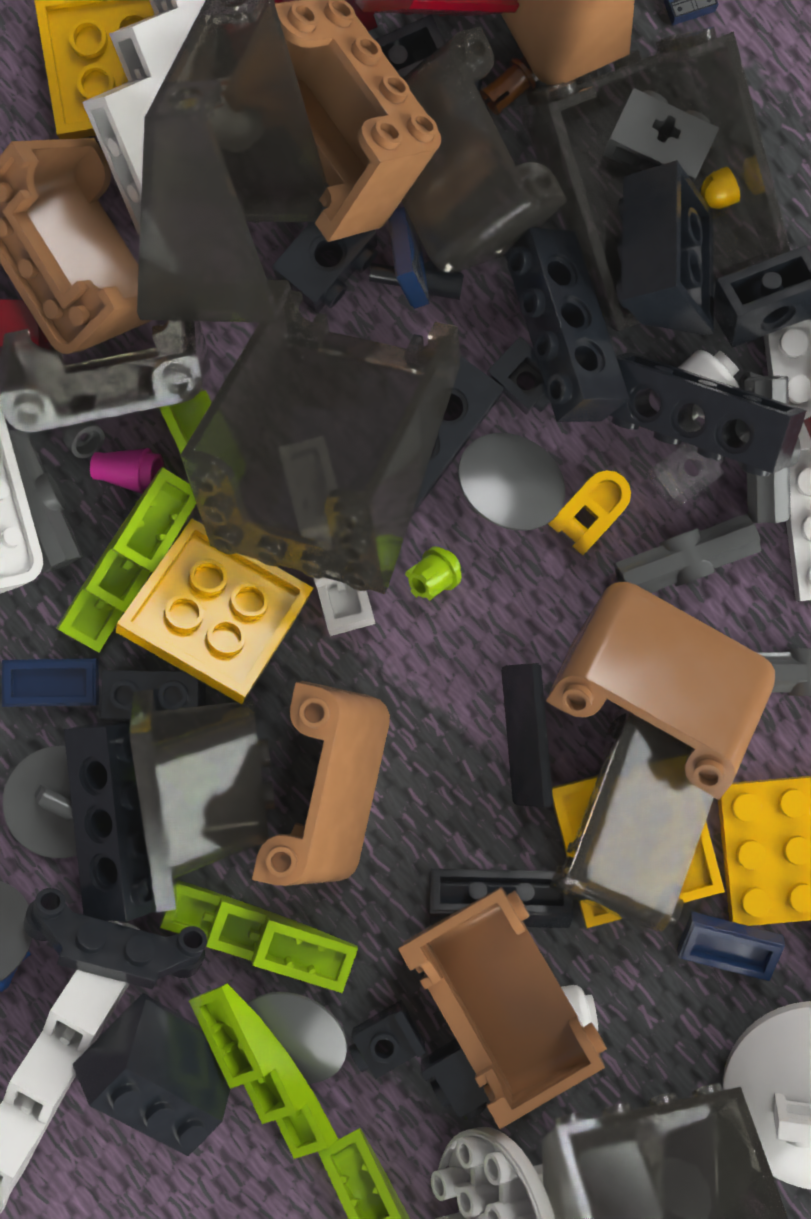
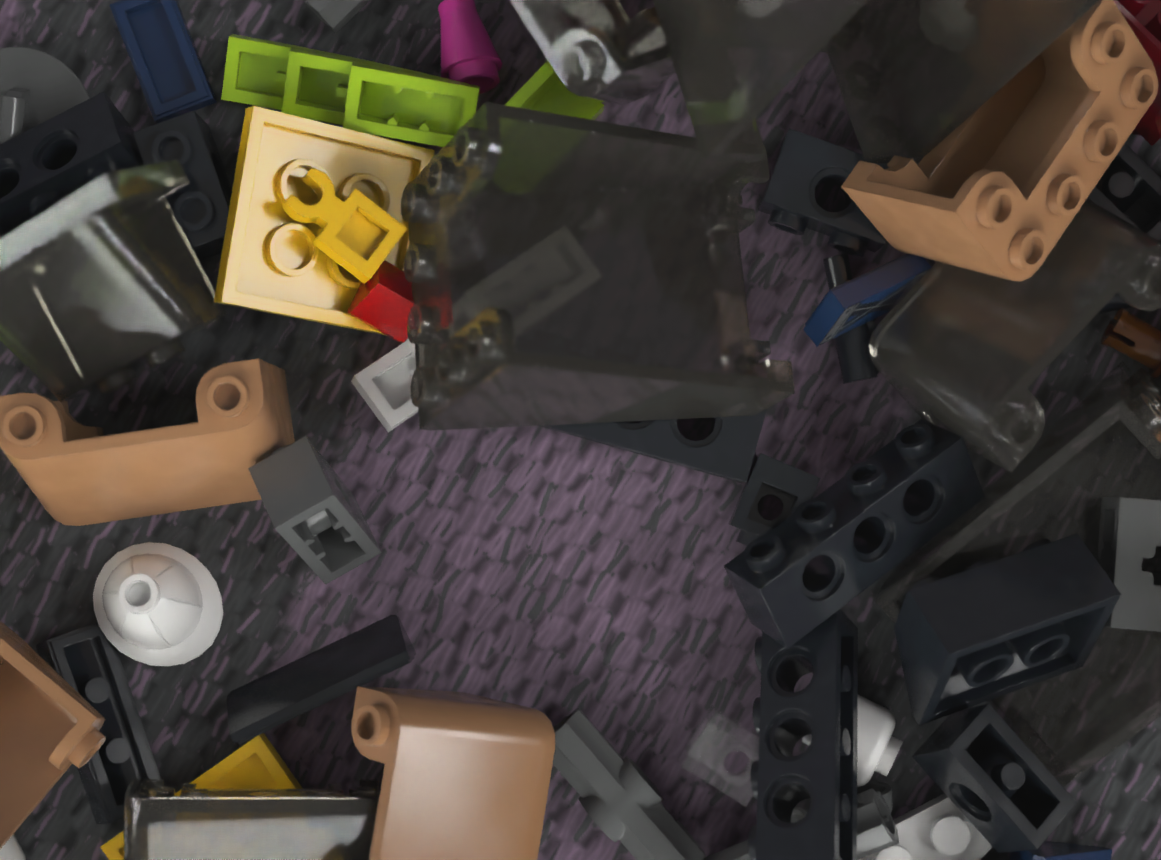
camera: 75 degrees right, 0 degrees up
(228, 589) = (353, 232): none -> yellow plate
(284, 588) = (385, 302): none -> red slope
(411, 690) = (314, 510): none -> dark grey brick
(433, 828) = (158, 604): none -> white hat
(434, 573) = (478, 483): lime hose -> none
(511, 481) = (632, 537): dark grey shield -> none
(604, 498) = (660, 662): yellow plate -> none
(720, 189) = (1113, 665): yellow hinge -> none

